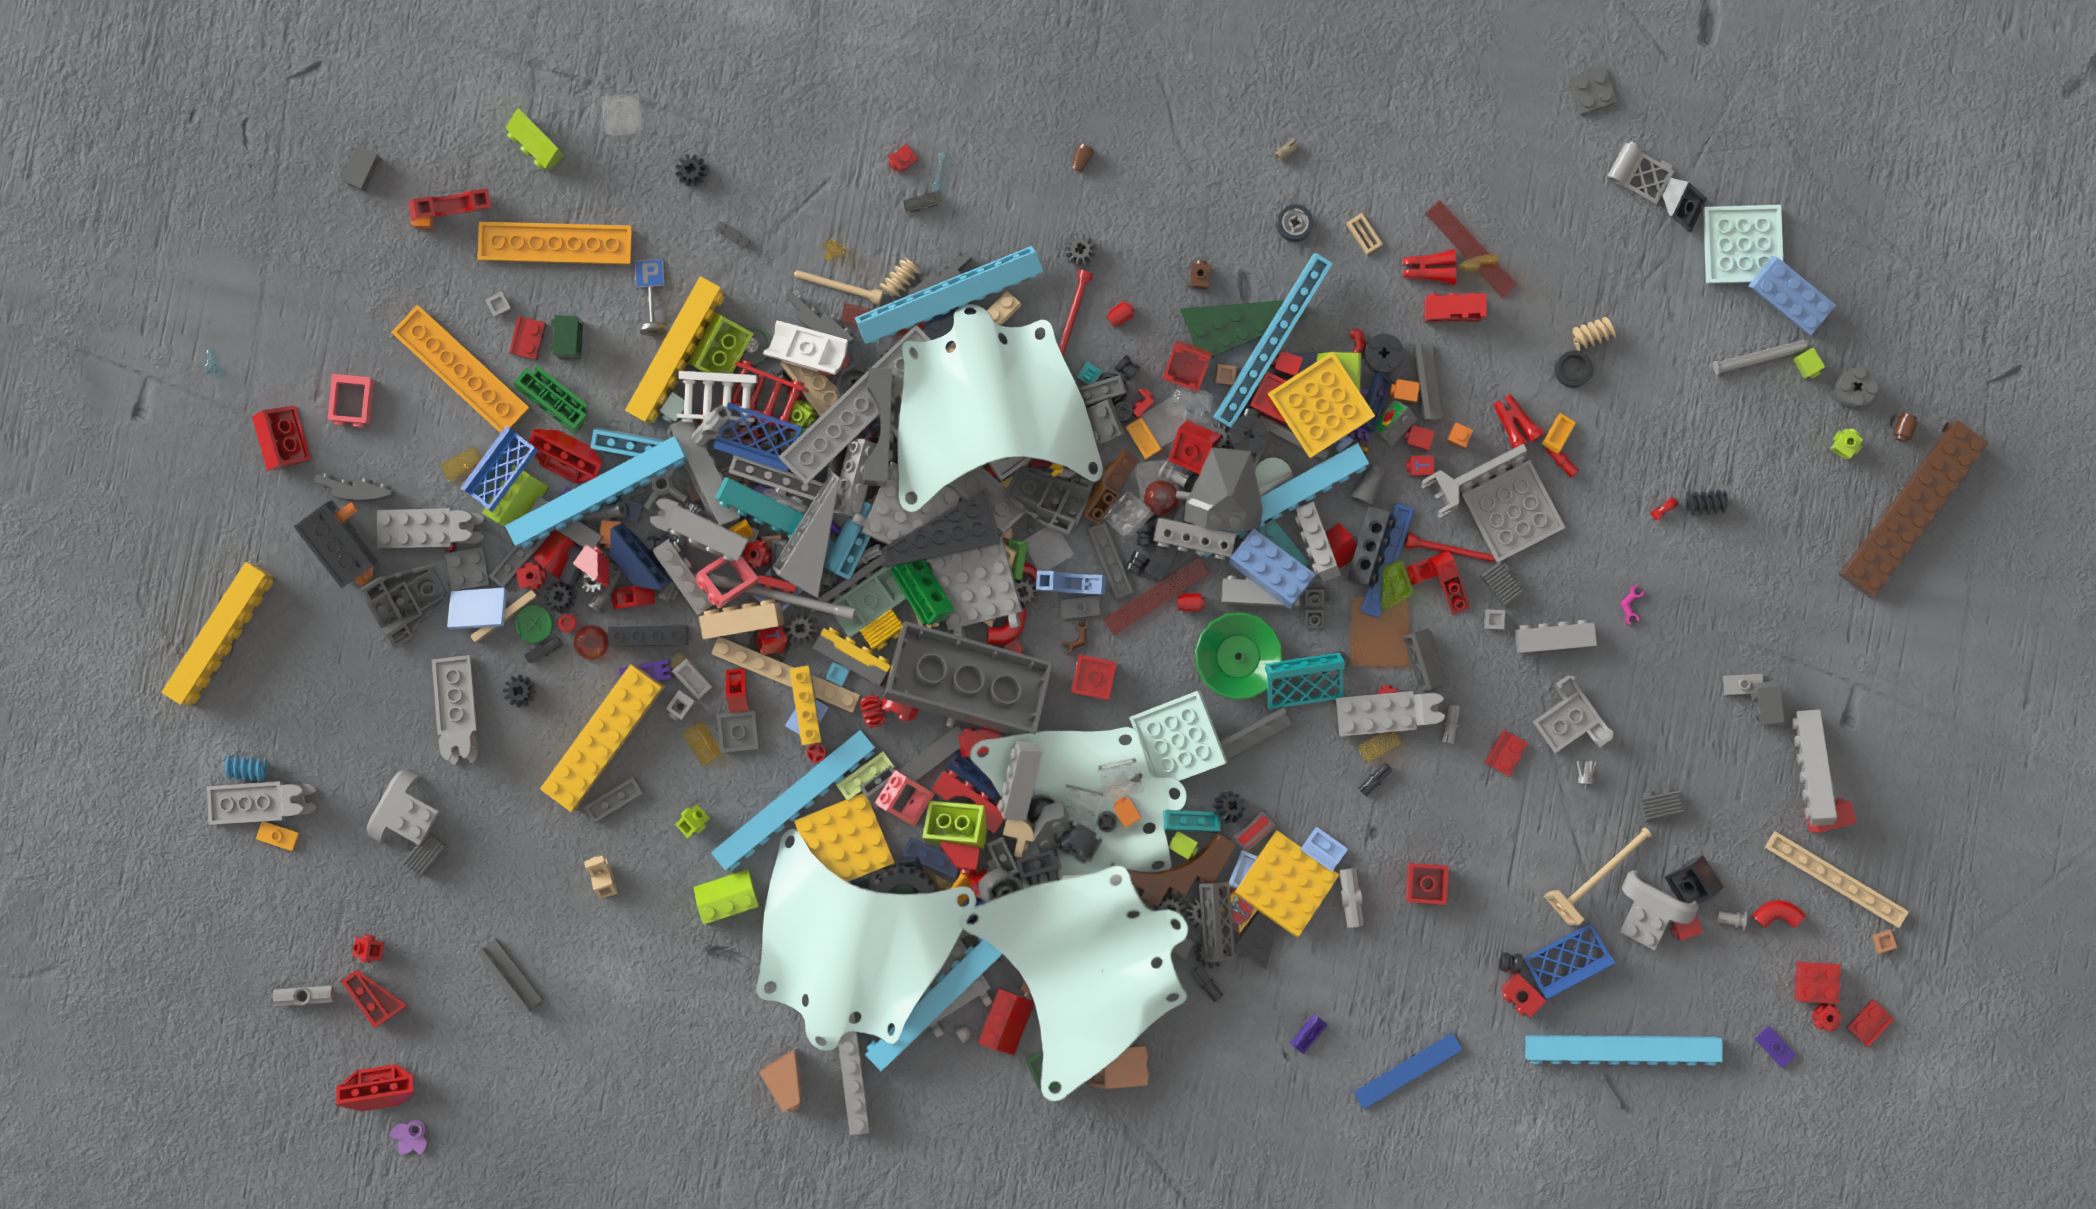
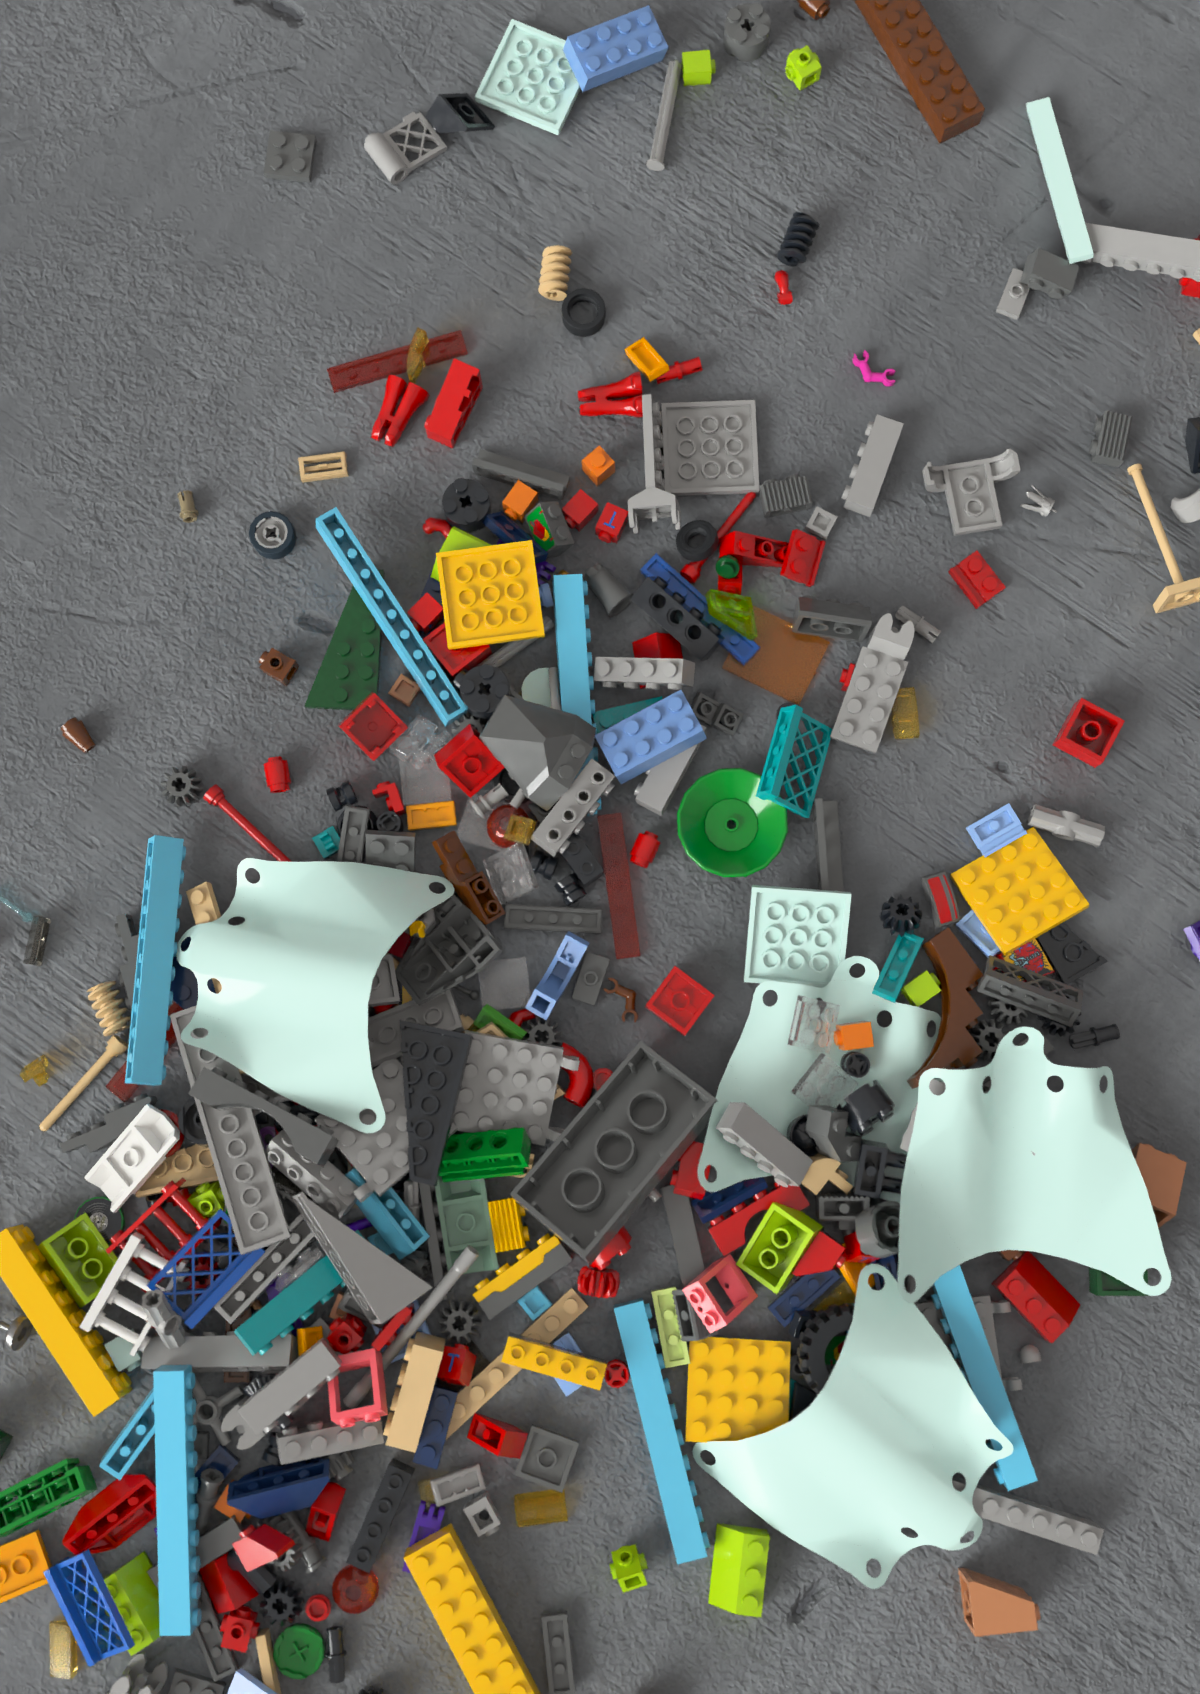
camera: 65 degrees left, 5 degrees down
(723, 645) = (435, 1427): none -> dark blue plate
(1160, 507) = (520, 829): none -> clear yellow tile
(1375, 779) = (942, 736): black axle -> none
(1426, 566) = (727, 566): none -> dark green plate
(1429, 542) = (705, 550): none -> black tyre
(1461, 617) = (802, 558): none -> red plate
(1847, 677) = (1059, 180): none -> light aqua tile

